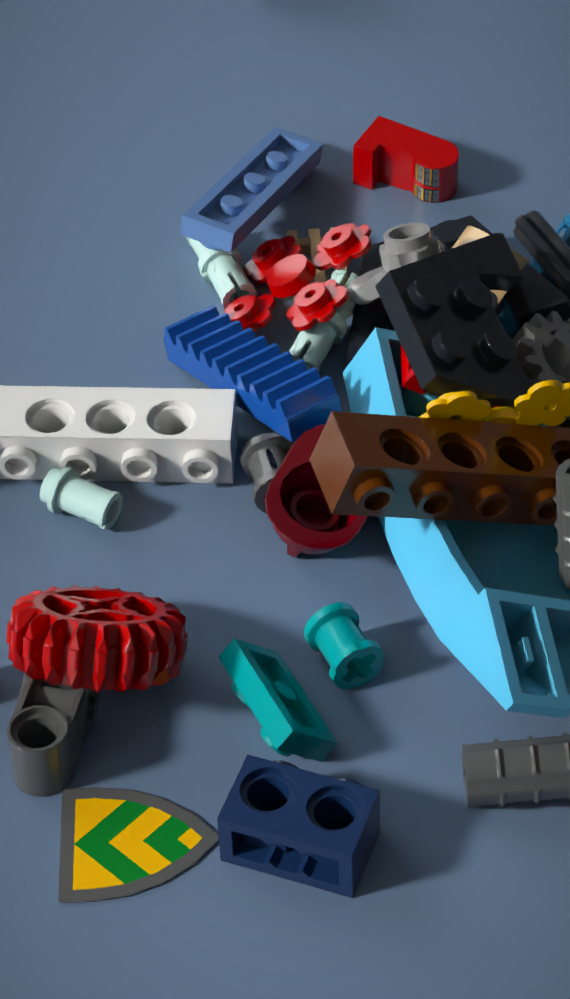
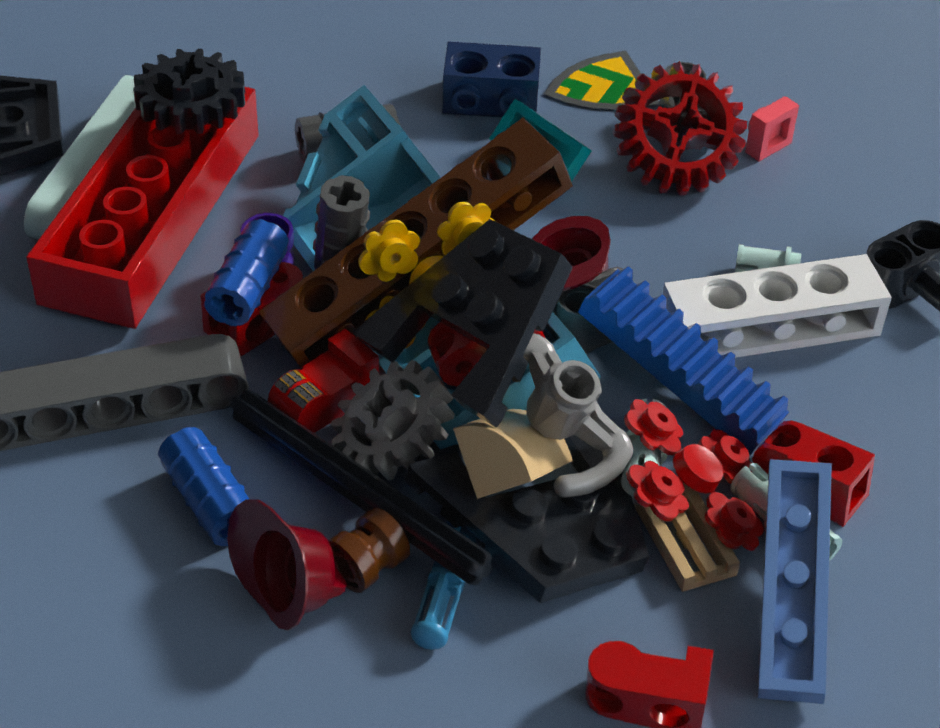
camera: 160 degrees right, 0 degrees up
(173, 287) = (850, 464): none -> red leg

